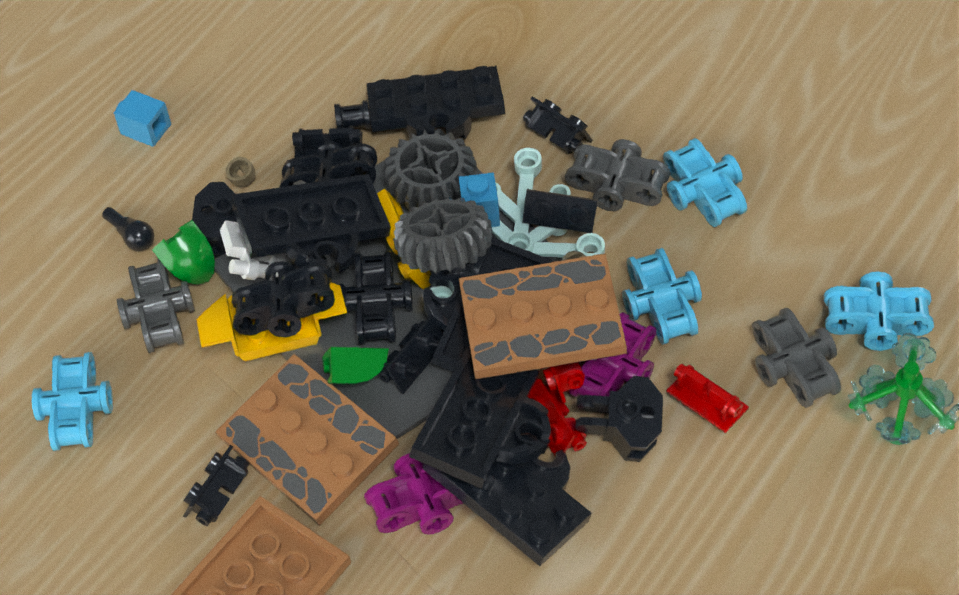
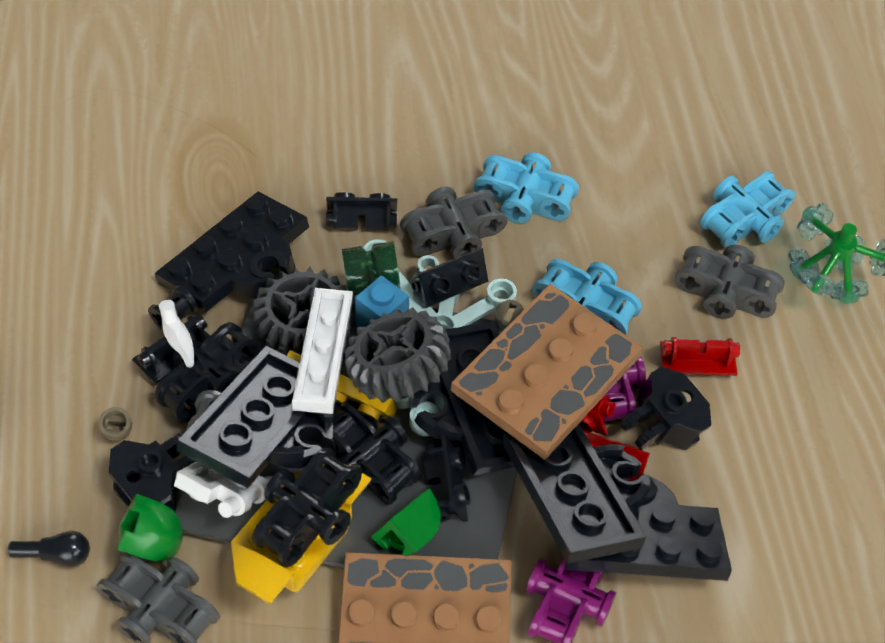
camera: 50 degrees left, 0 degrees up
(327, 129) = (176, 332): none -> white bar
(385, 206) = (323, 351): none -> white tile
(511, 166) = (365, 266): none -> clear green wheel

